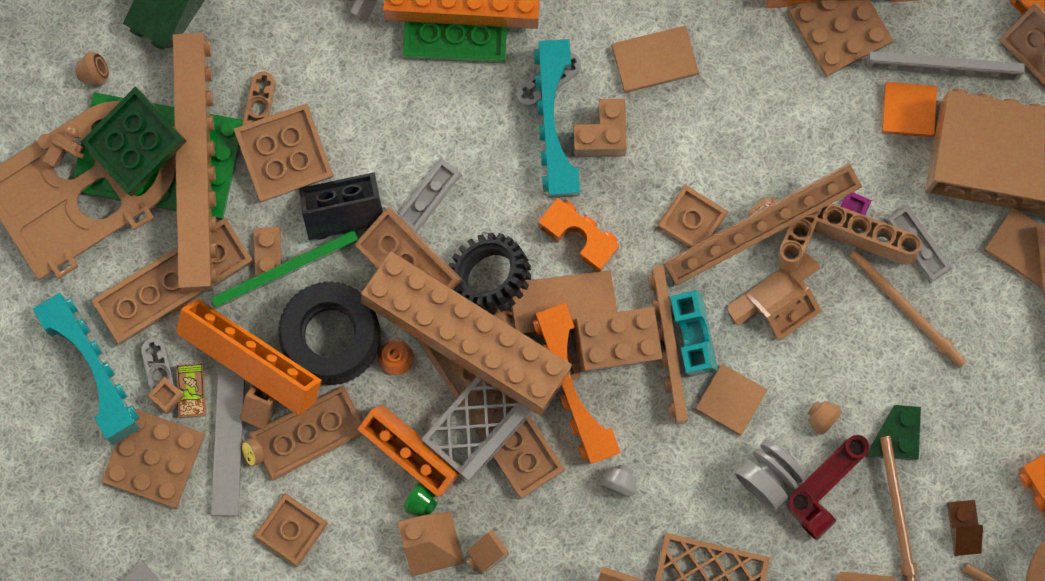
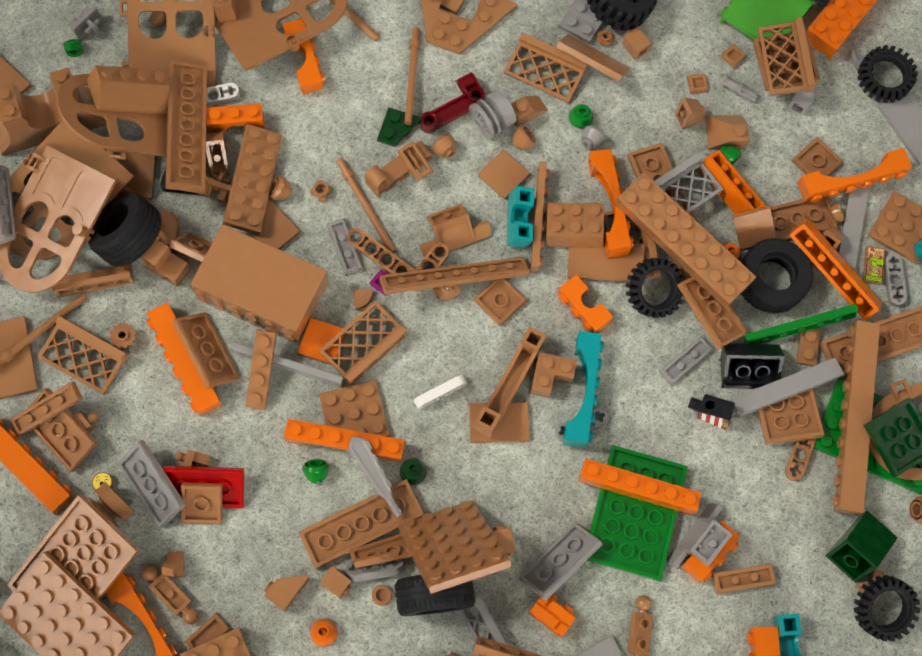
camera: 175 degrees left, 5 degrees down
(165, 395) = (894, 261): medium nougat tile -> none
(182, 539) = (815, 185): none -> orange arch
(289, 182) = (787, 387): none -> light grey tile
(369, 393) = (754, 226): none -> medium nougat tile
(373, 129) = (720, 411): none -> black torso
(634, 513) = (581, 116): none -> green cone
(654, 102) = (510, 382): none -> medium nougat arch
(716, 456) = (523, 138): none -> medium nougat cone
(721, 503) = (528, 109): none -> medium nougat slope
(743, 73) = (444, 389): none -> white beam
(841, 100) = (375, 354): none -> medium nougat fence
(852, 383) = (423, 174): none -> medium nougat tile
(874, 178) = (362, 298): none -> medium nougat tile
(879, 366) = (385, 178): none -> medium nougat beam
(964, 527) = (370, 61): reddish brown slope -> none
(976, 46) = (261, 369): none -> medium nougat plate
(980, 310) = (320, 185): none -> medium nougat plate
(1030, 299) = (280, 188): none -> medium nougat cone

